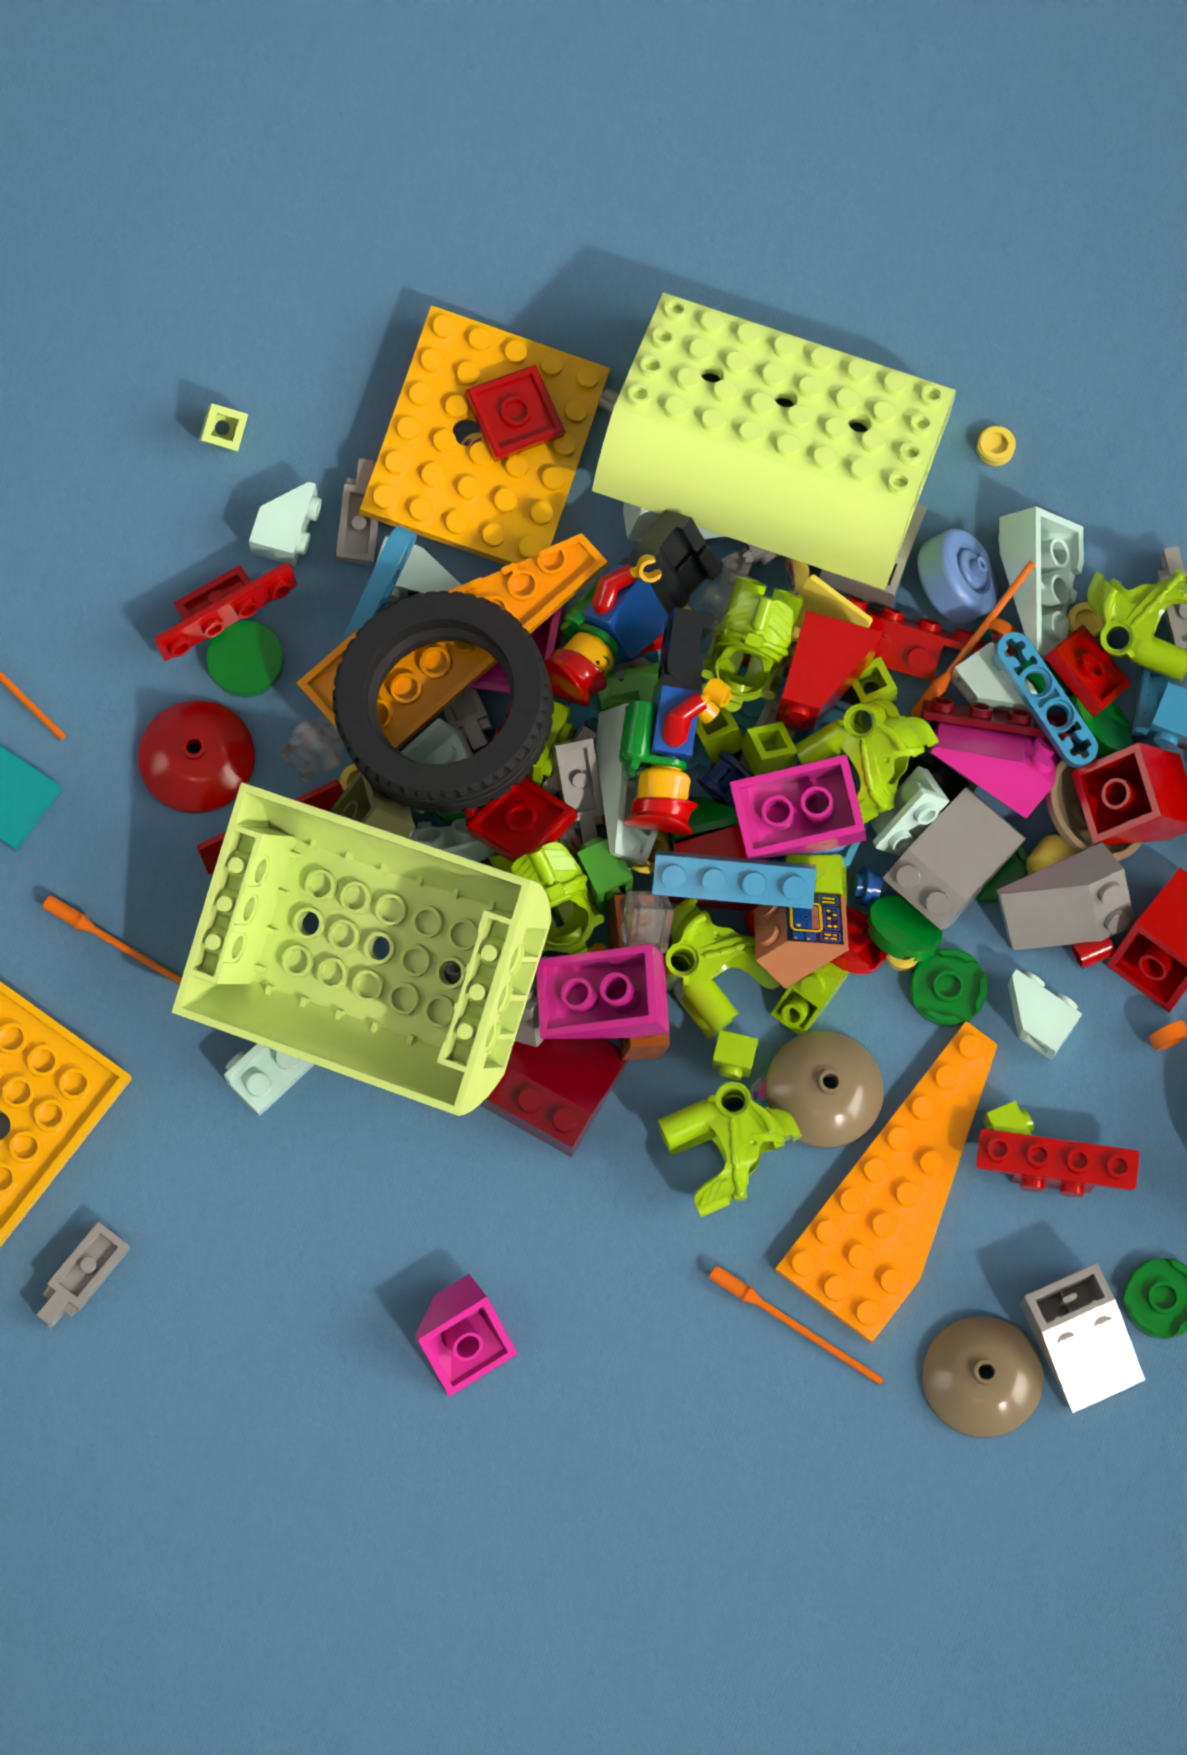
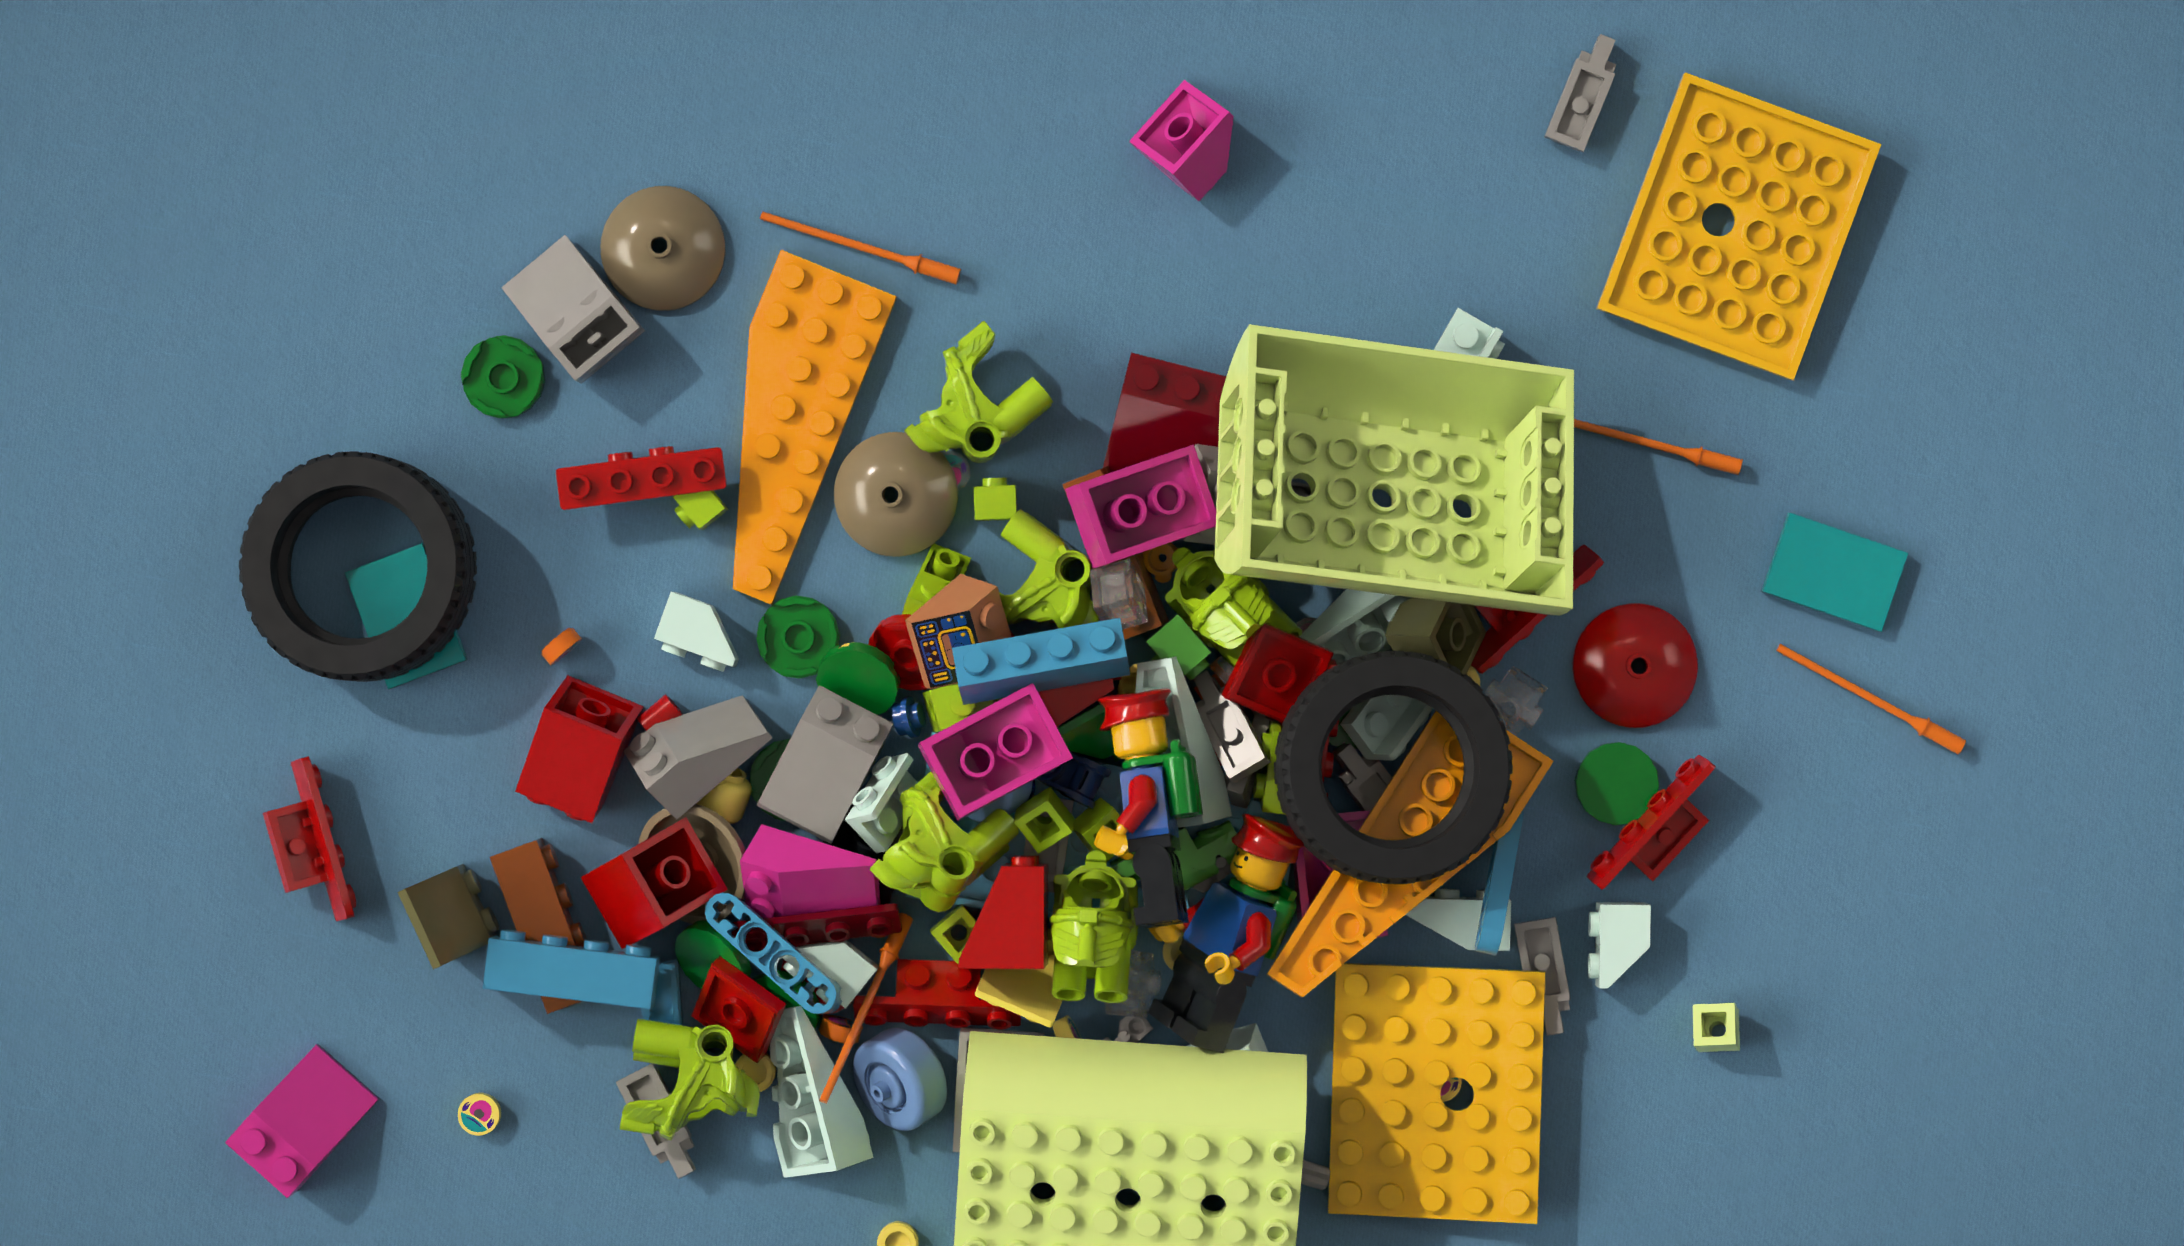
camera: 165 degrees right, 15 degrees up
(515, 413) = (1413, 1126): red tile -> none

